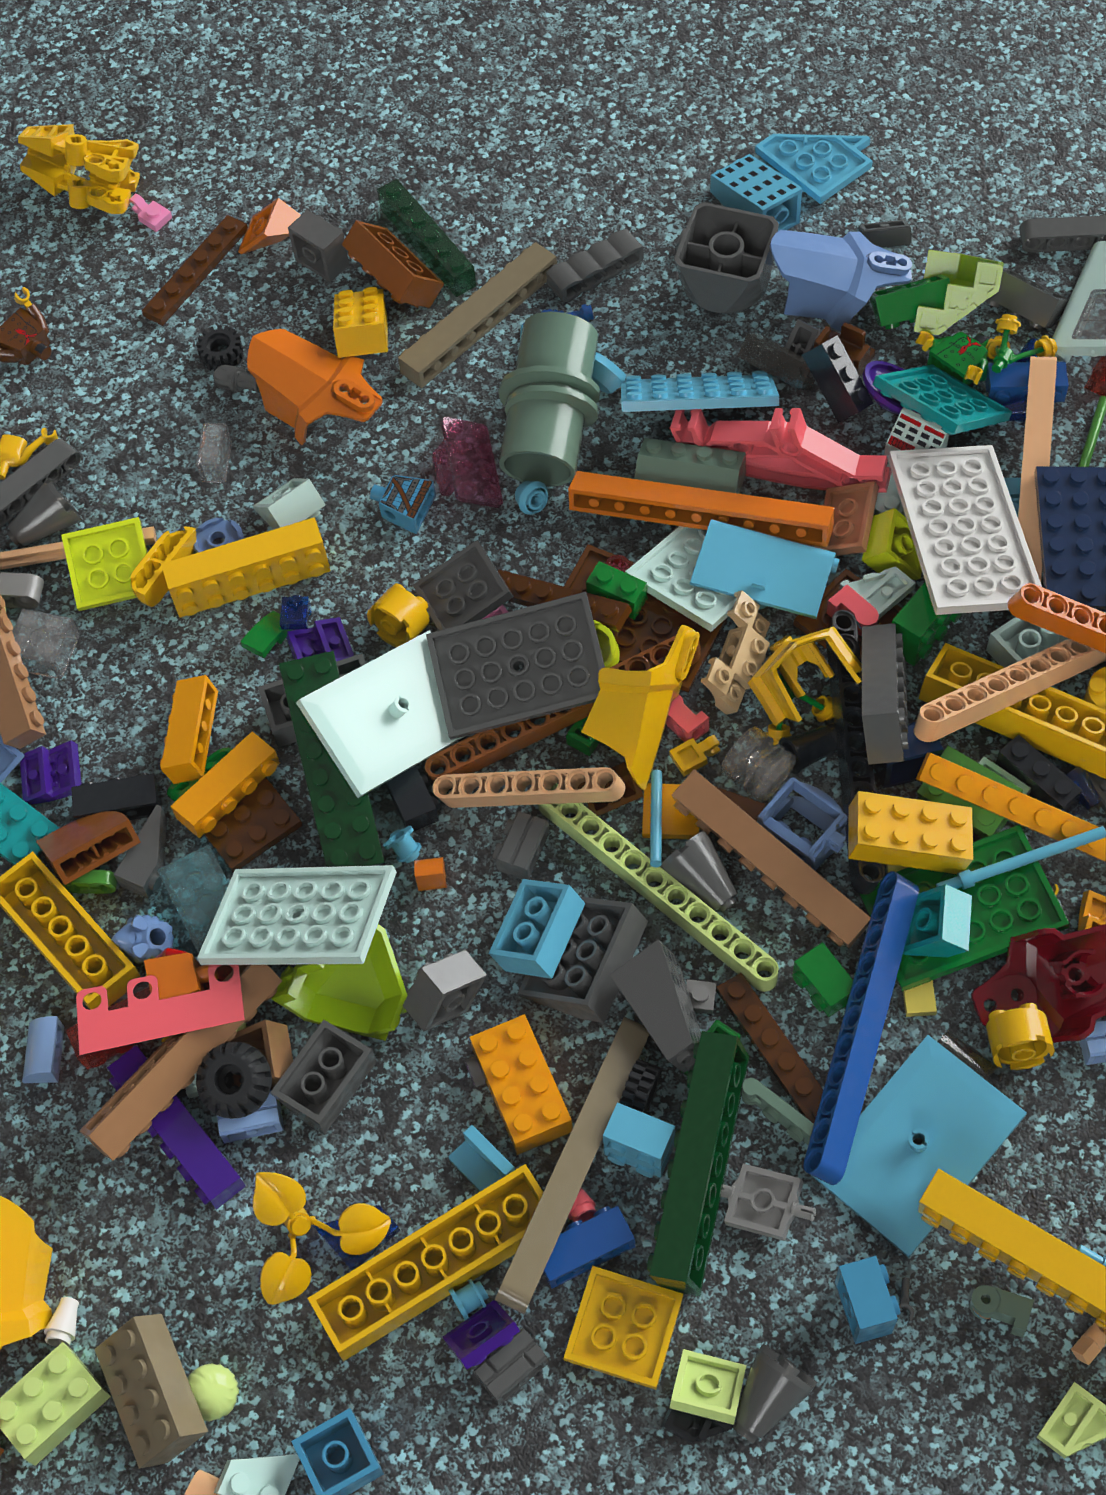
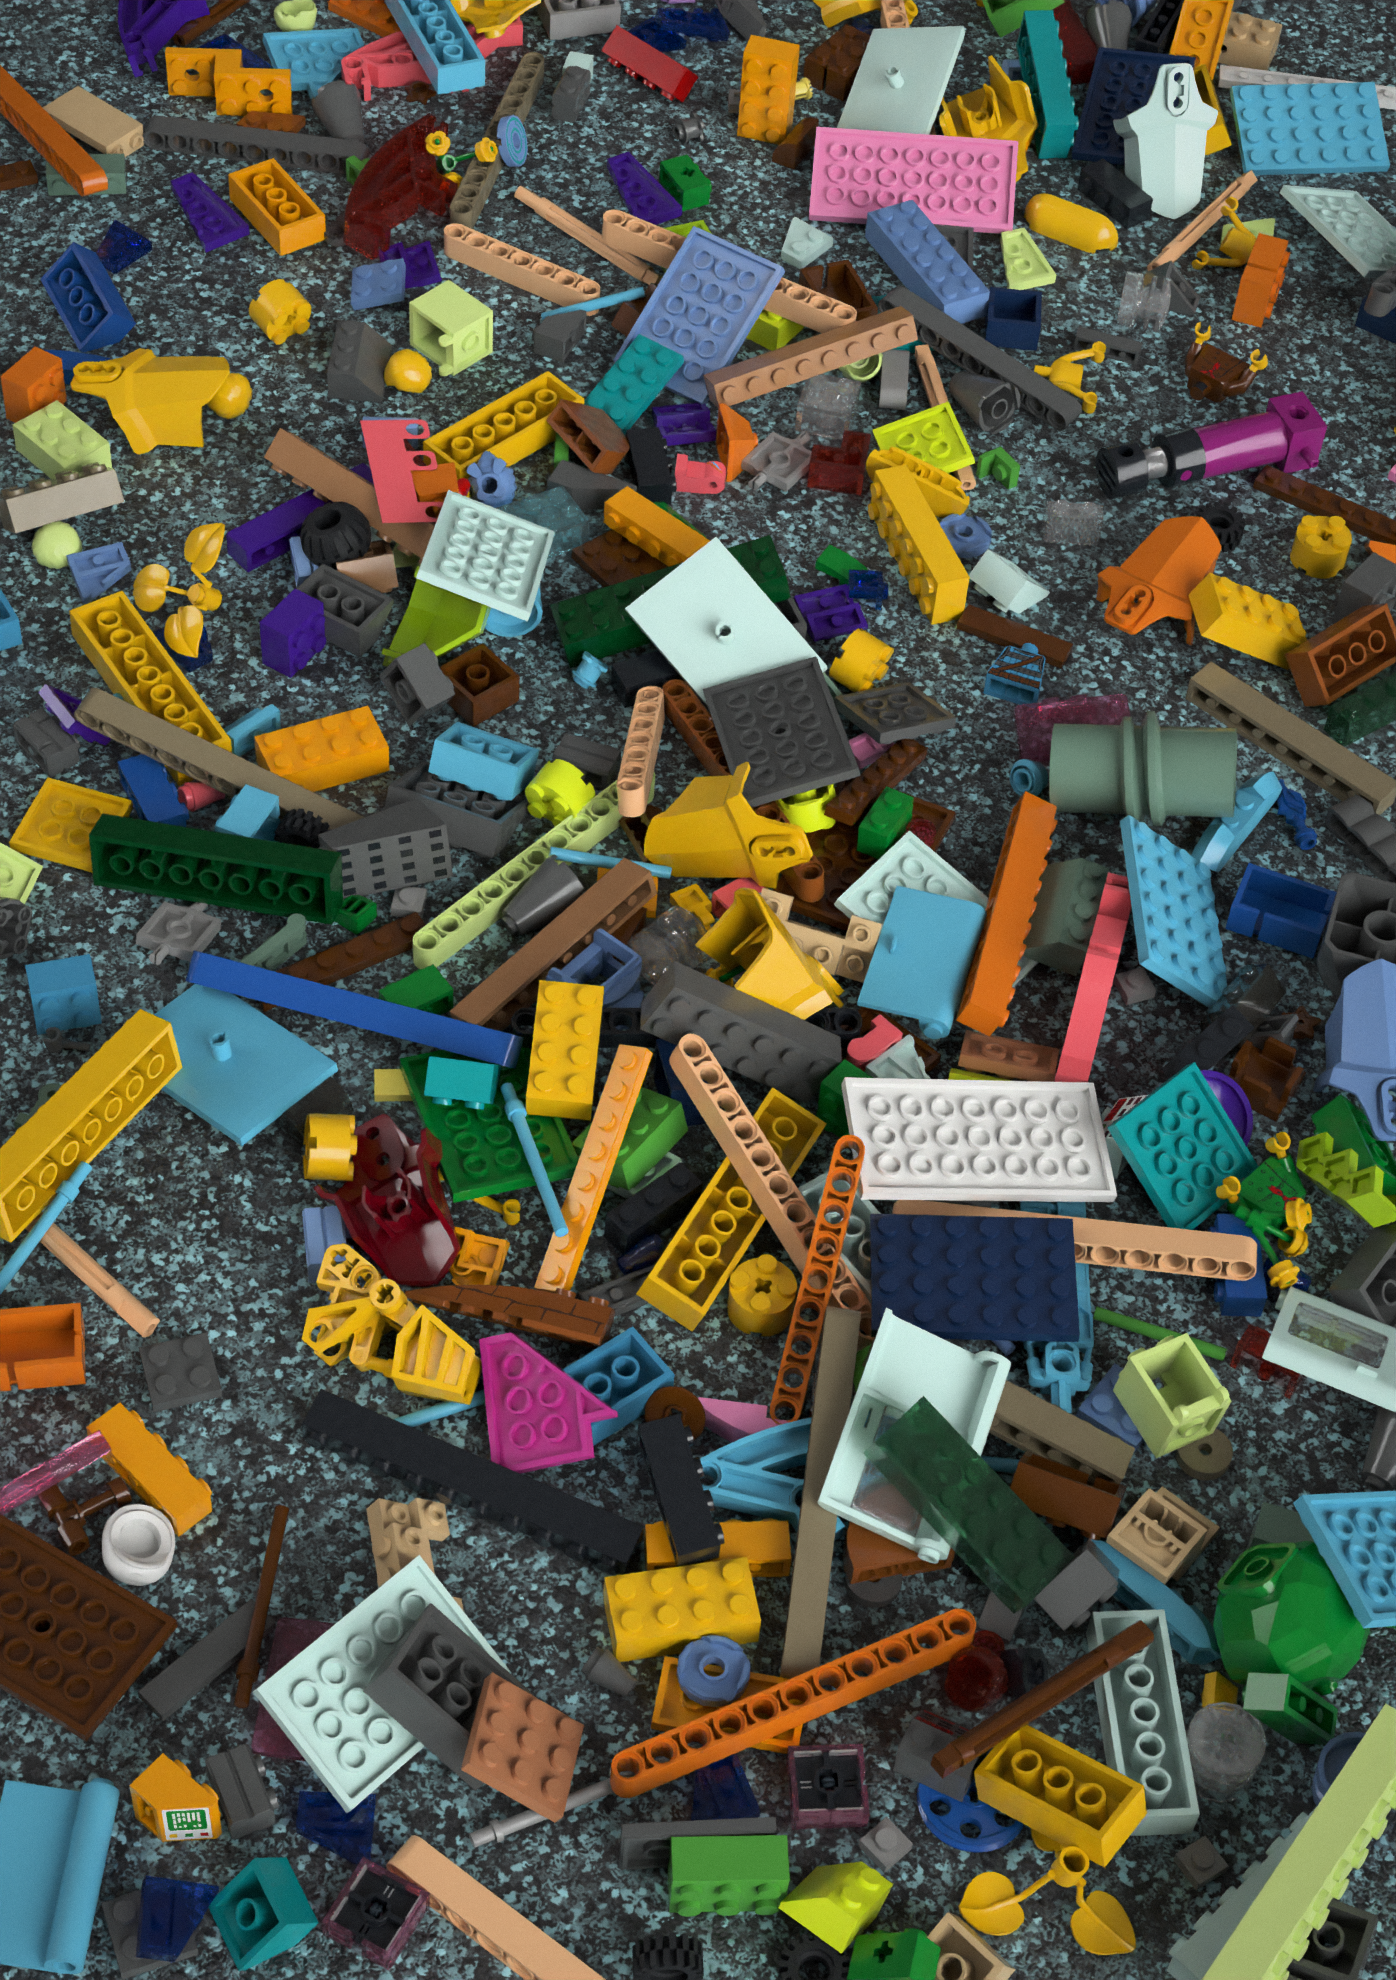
camera: 80 degrees right, 10 degrees down
(63, 1323) = (132, 454): white cone -> none
(95, 724) = (733, 440): none -> orange slope
(113, 687) = (778, 461): none -> light grey plate
(131, 754) = (699, 476): none -> coral leg
(132, 627) = (842, 467): none -> clear red brick
(133, 340) = (1284, 435): none -> piece
(135, 504) = (1000, 465): none -> bright green bracket
(189, 729) = (724, 507): light orange brick -> none
(247, 1342) = (98, 569): none -> medium blue wing
(251, 276) = (1321, 546): none -> yellow brick
(350, 505) = (1010, 633): none -> reddish brown tile
(362, 1118) = (292, 633): none -> dark purple brick
(427, 936) = (481, 684): none -> reddish brown brick
(430, 873) = (559, 691): orange brick -> none
(575, 861) = (558, 792): none -> neon yellow brick
(672, 333) = (1280, 910): none -> blue piece
(775, 335) = (1309, 1022): none -> reddish brown plate

